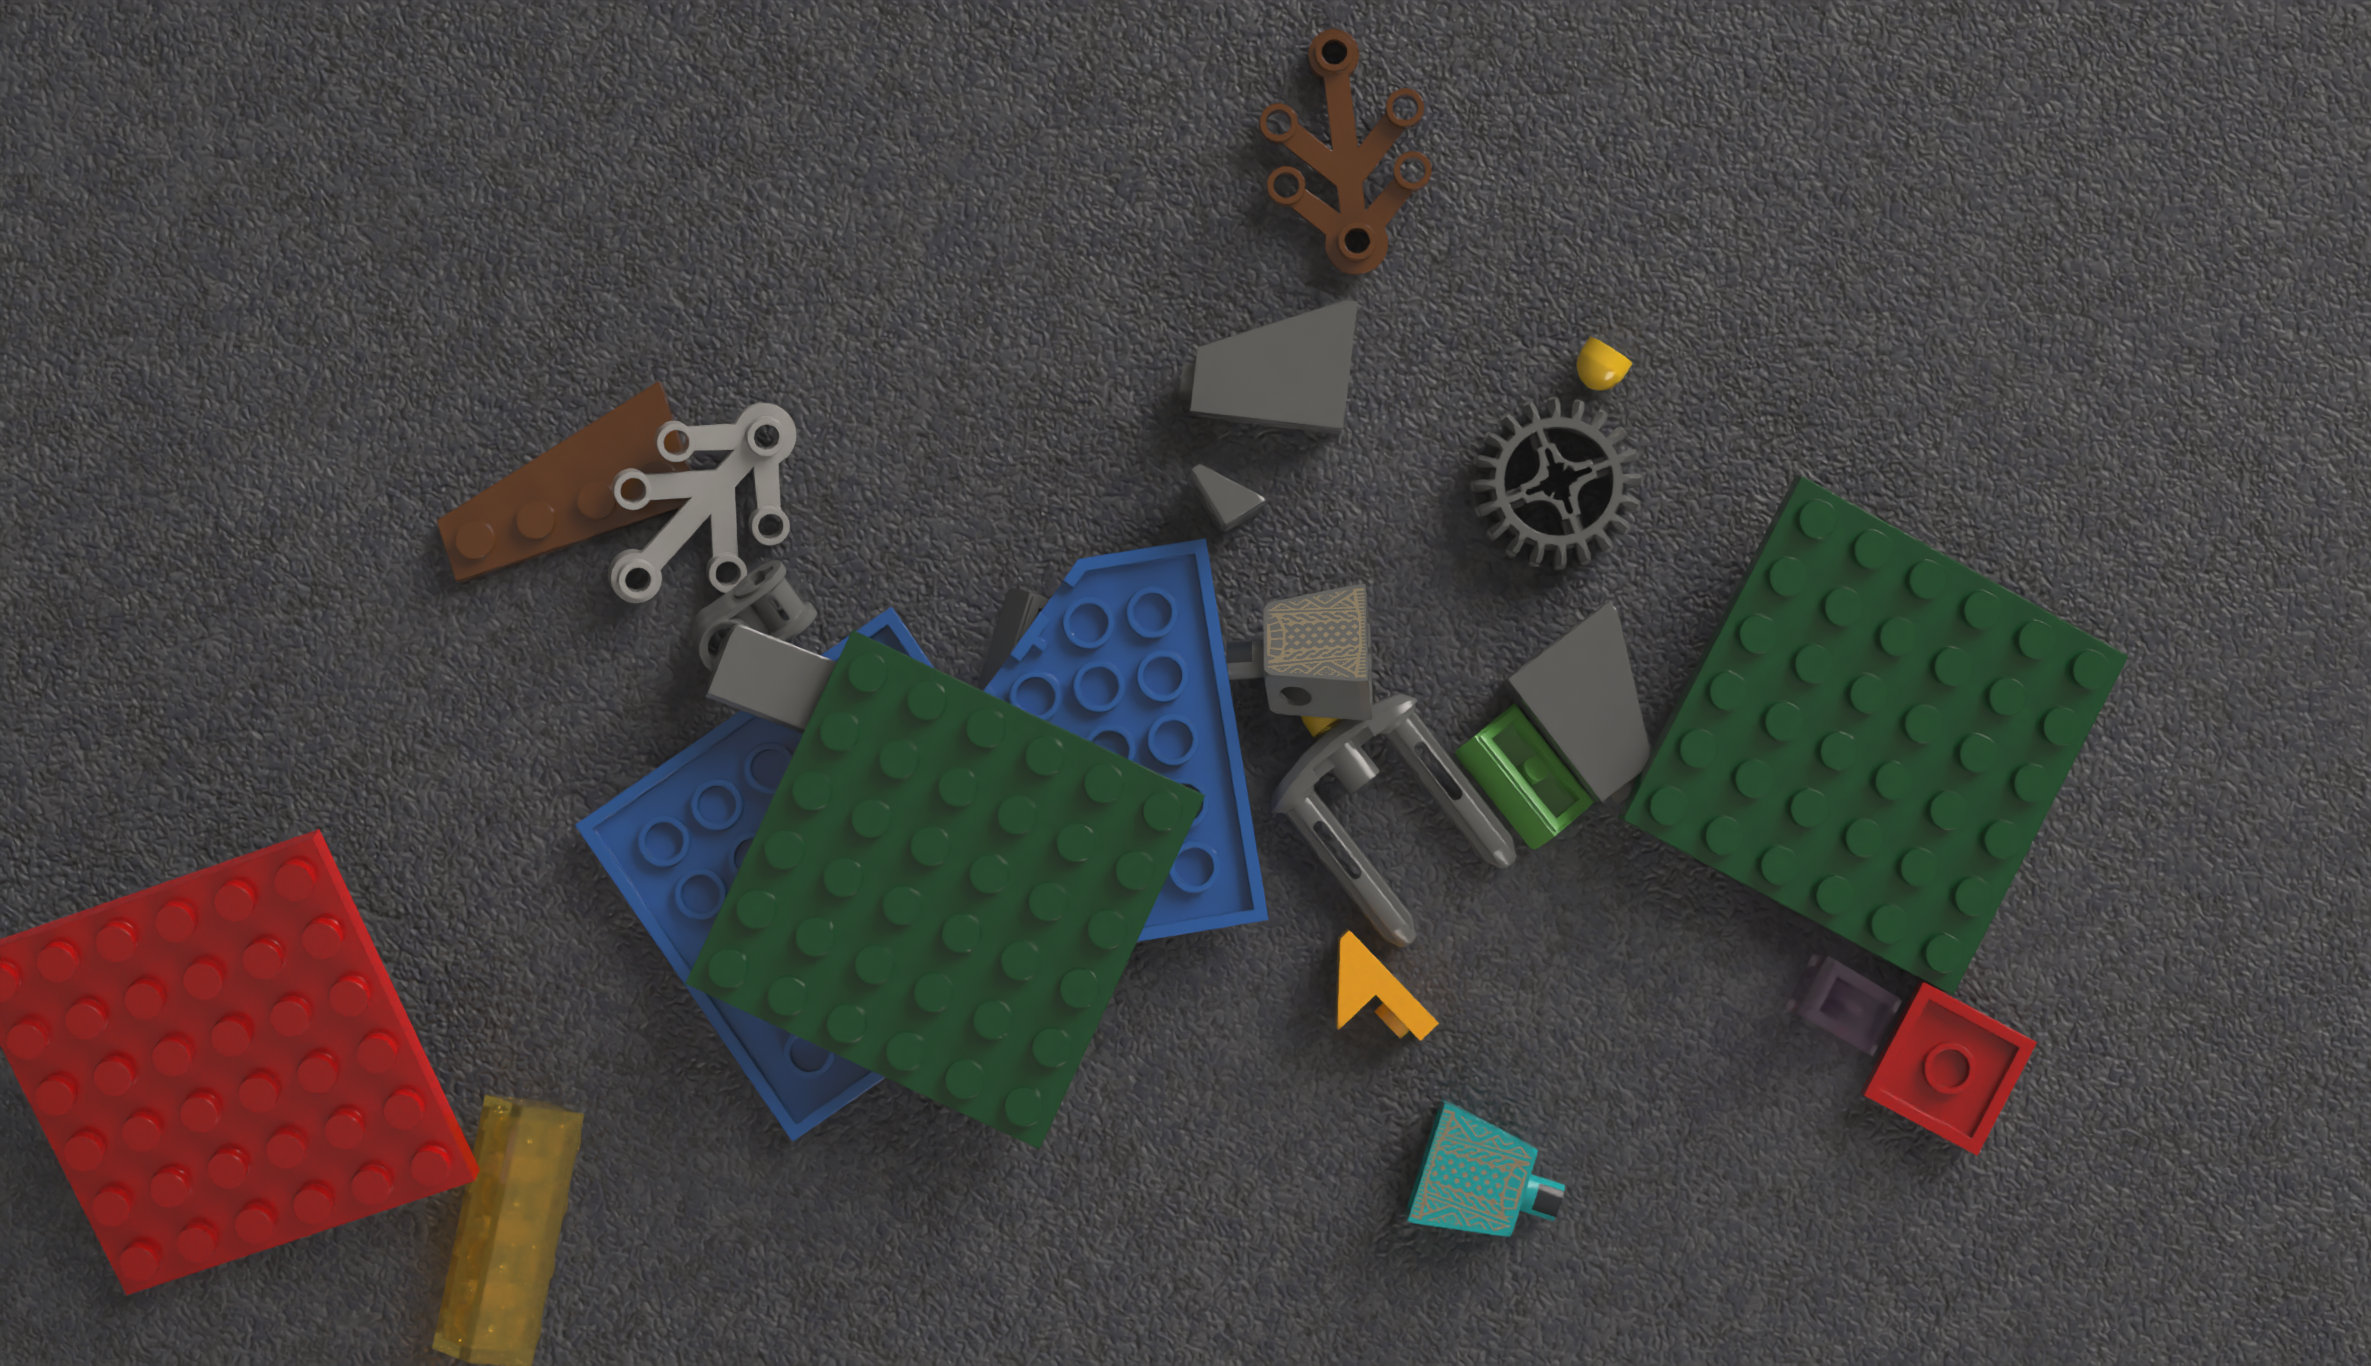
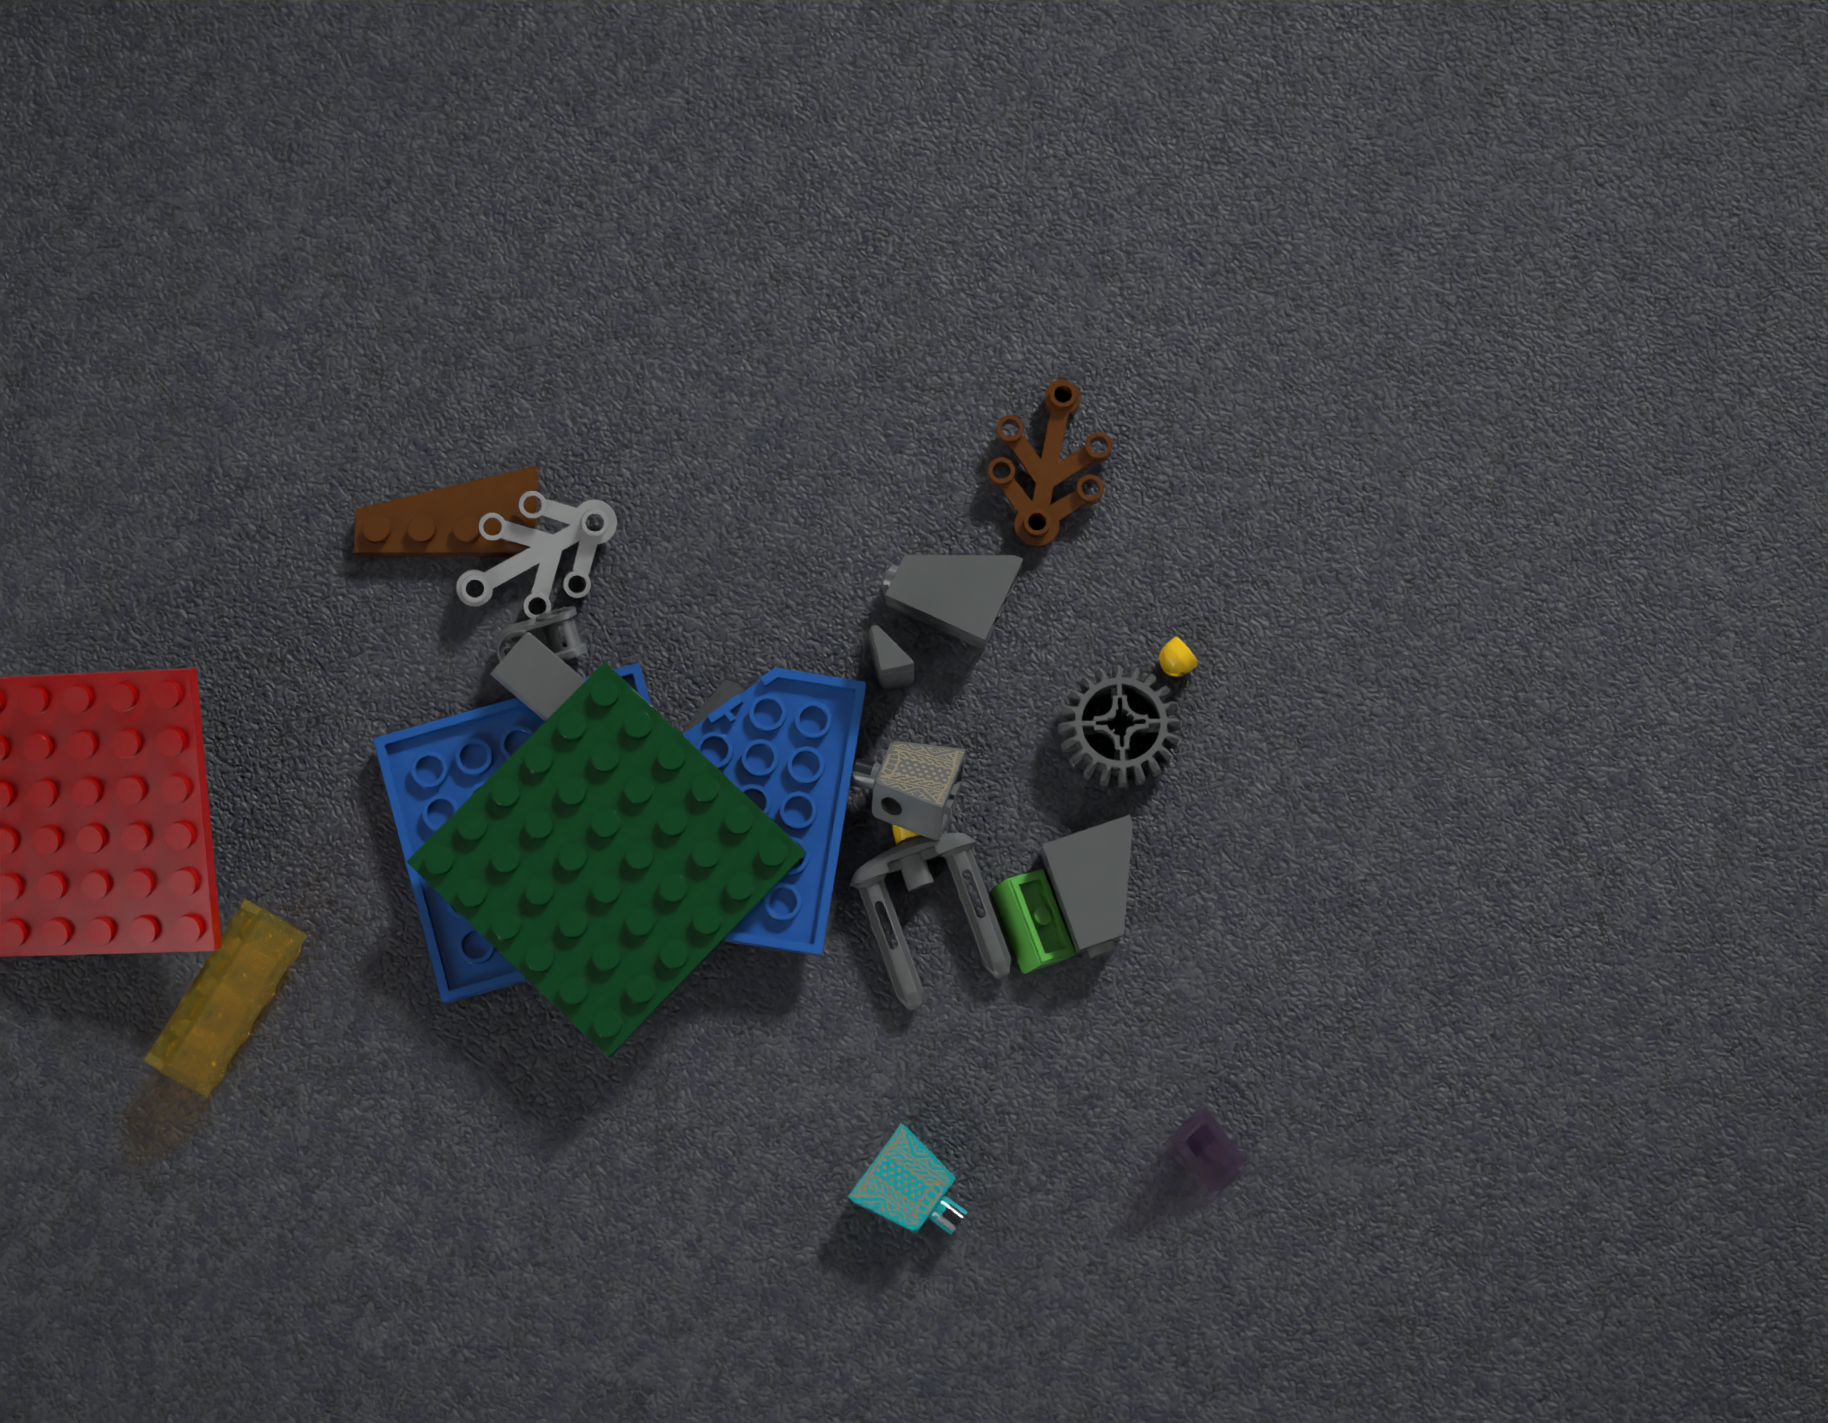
camera: 20 degrees right, 10 degrees down
(1364, 976) = (876, 1020): light orange slope -> none
(1873, 735) = (1284, 969): dark green plate -> none
(1948, 1067) = (1265, 1220): red plate -> none

